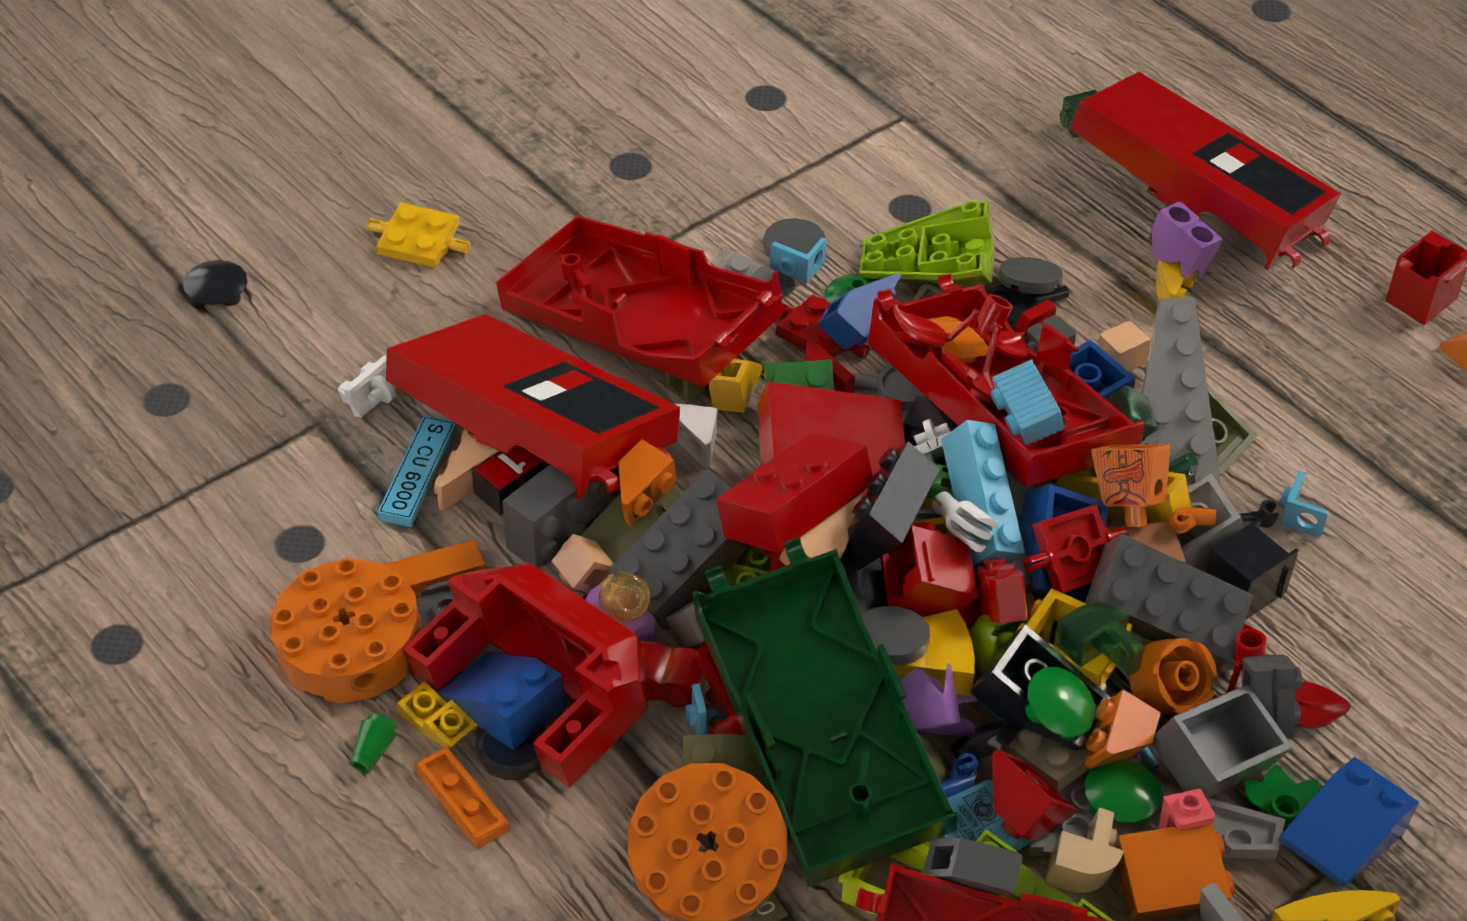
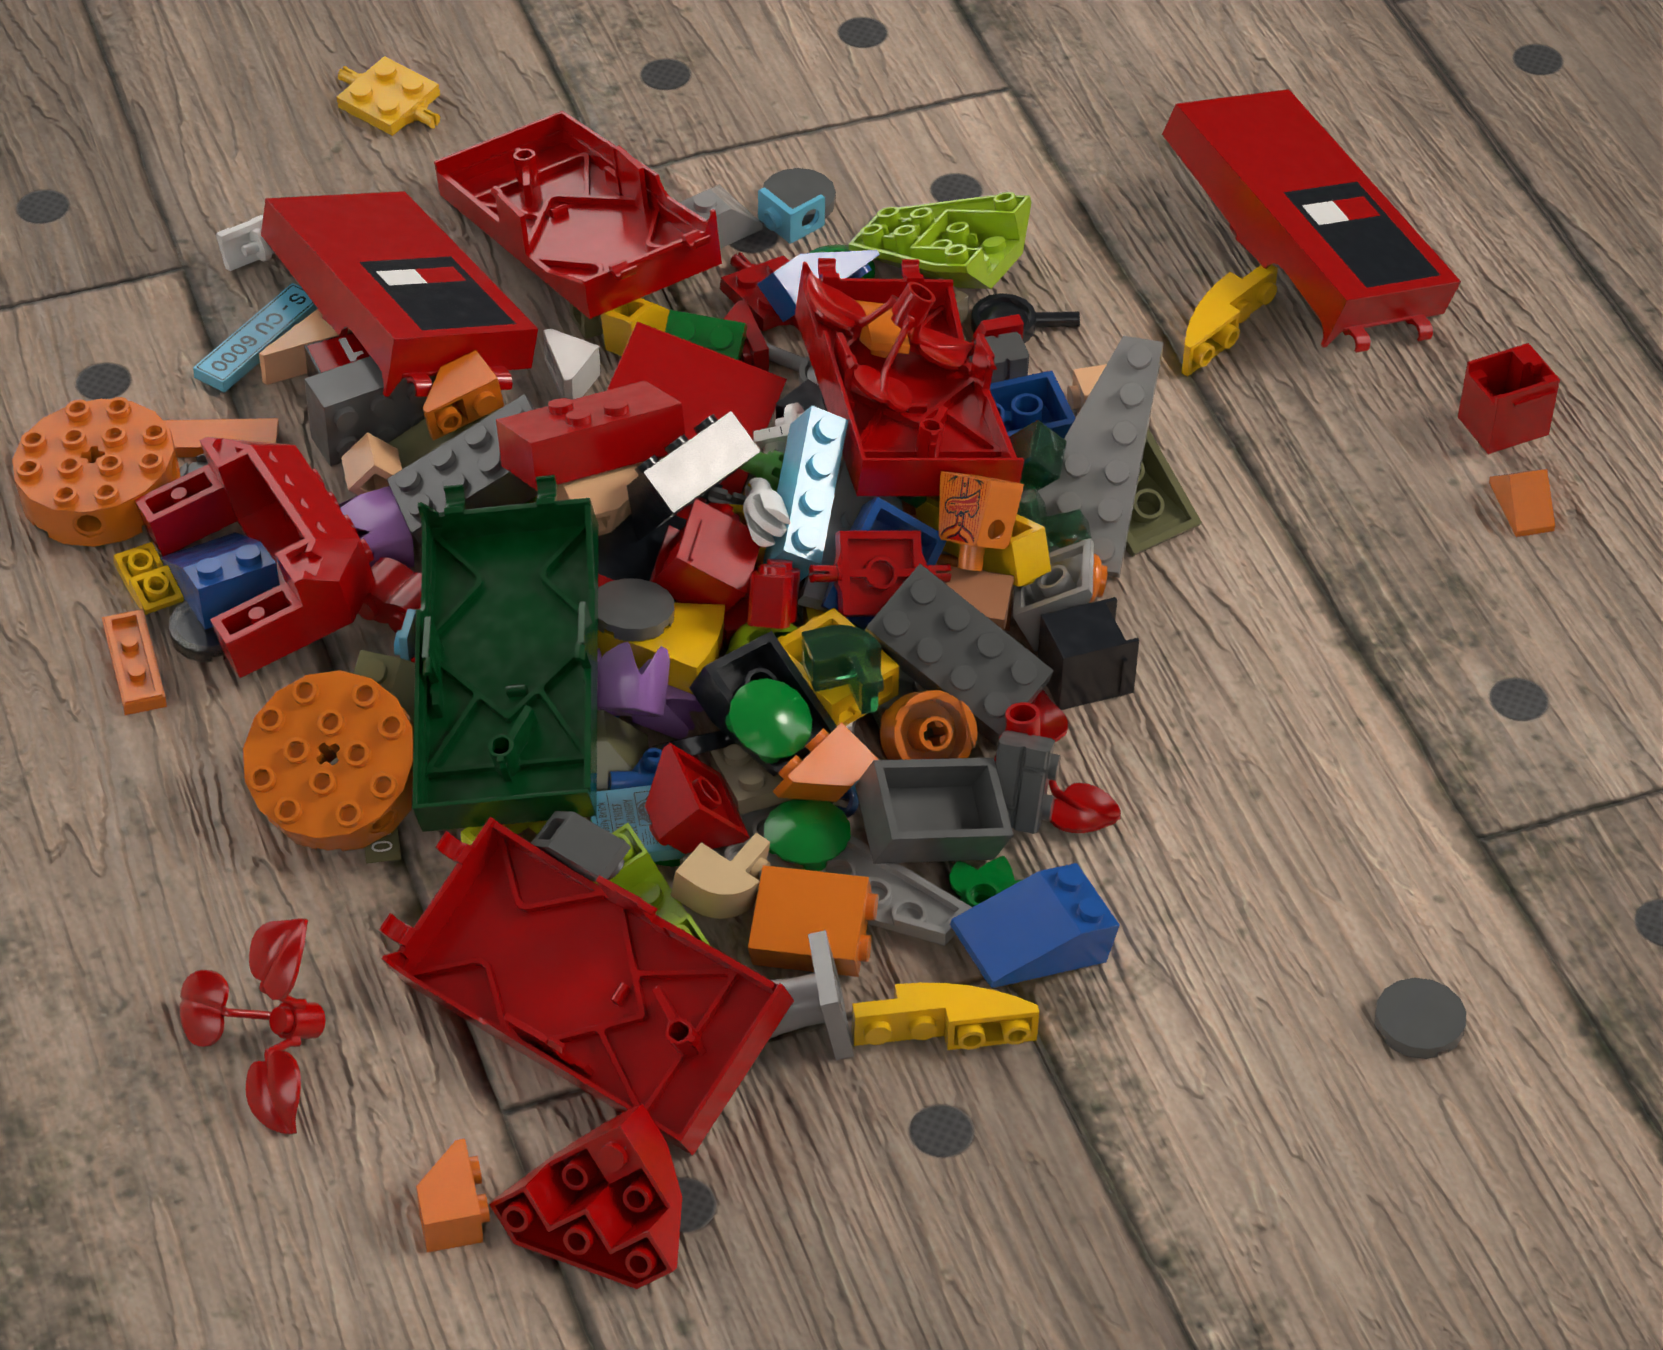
camera: 20 degrees right, 0 degrees up
(215, 283) = (149, 98): black dish -> none
(372, 741) = (71, 584): green cone -> none
(624, 596) = (379, 503): clear yellow head -> none
(1027, 402) = (890, 405): medium azure brick -> none
(1030, 275) = (1042, 290): dark grey tile -> none
(1183, 238) = (1210, 292): medium lavender piece -> none
(1186, 810) = (851, 859): coral bracket -> none
(1188, 517) = (1029, 575): orange arm -> none
(1264, 512) = (1155, 608): black hand -> none
(1294, 508) = (1192, 599): medium azure bracket -> none

